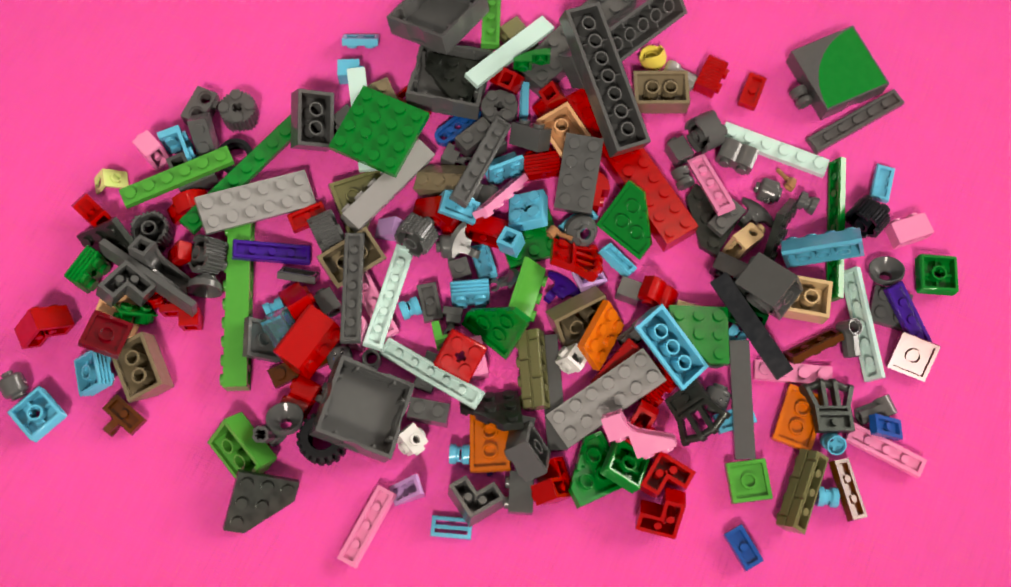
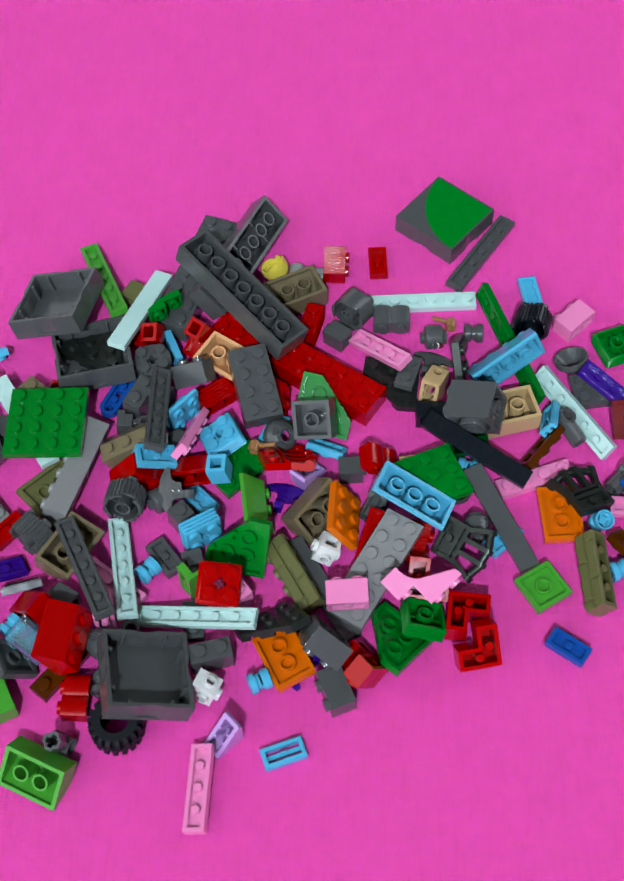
camera: 20 degrees left, 15 degrees down
(257, 498) = (73, 811): pearl dark grey plate -> none
(283, 413) = (69, 713): dark grey piece -> none
(387, 228) = (92, 508): lavender slope -> none
(475, 504) = (296, 717): brick -> none
(507, 280) = (233, 502): dark grey piece -> none
(568, 413) = (347, 593): none -> bright pink brick
(618, 229) = (314, 418): none -> dark grey brick
(662, 128) = (313, 319): none -> red brick
(682, 177) = (352, 356): dark grey wheel -> none
(801, 97) = (423, 250): dark grey wheel -> none
(836, 322) = (549, 418): none -> medium azure tile

